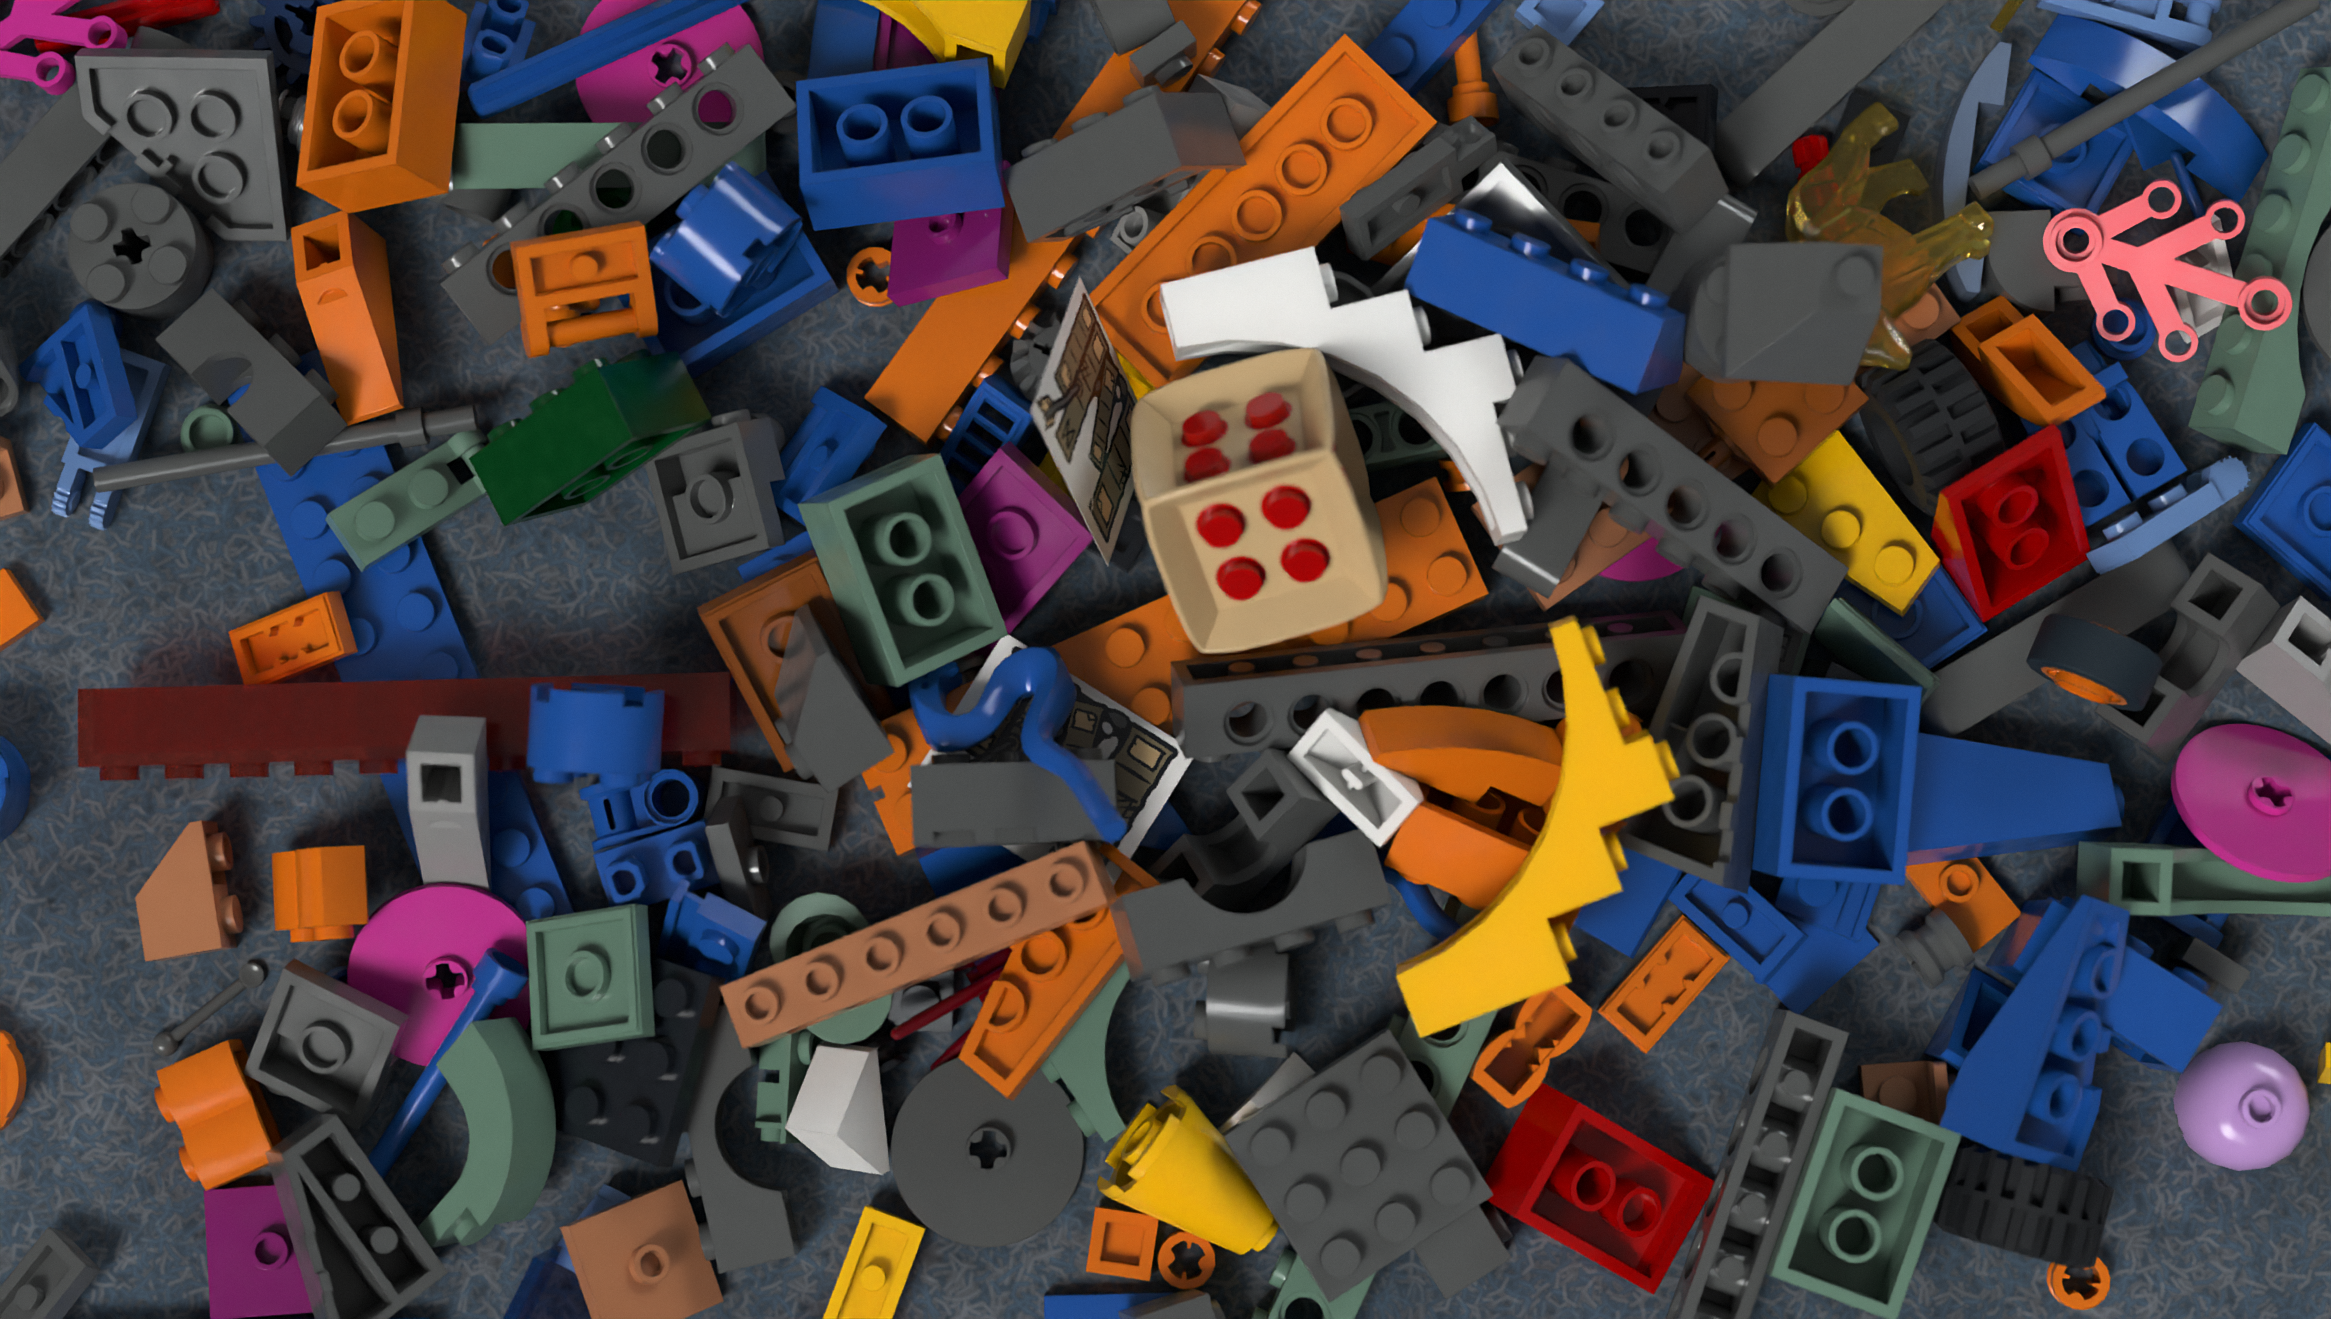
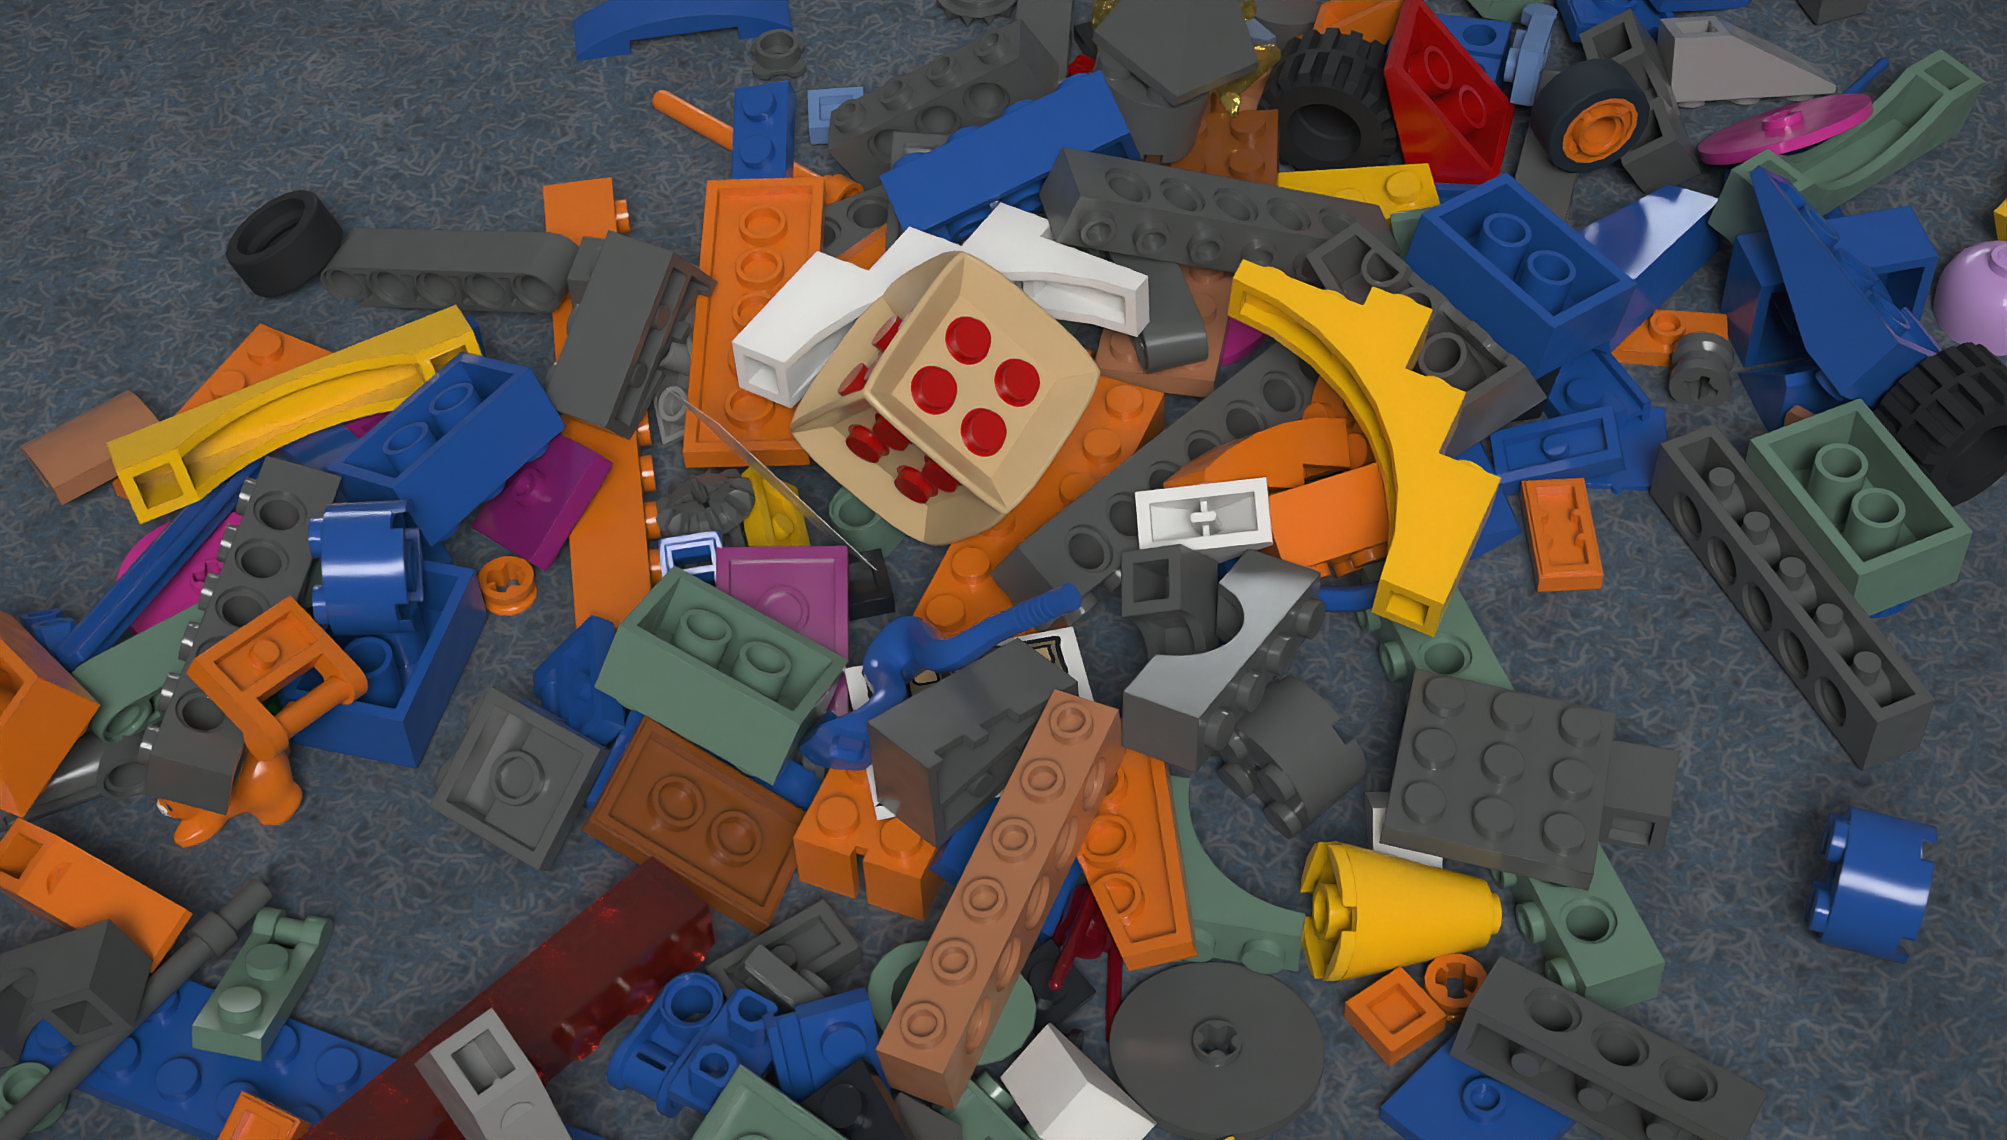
camera: 45 degrees left, 35 degrees down
(589, 435) = (374, 794): dark green brick -> none
(595, 731) = (581, 941): blue brick -> none
(824, 709) = (751, 792): dark grey slope -> none
(1415, 187) = (850, 215): dark grey hinge -> none
(1518, 1056) = (1520, 619): orange brick -> none
(1596, 1187) = (1674, 675): red slope -> none

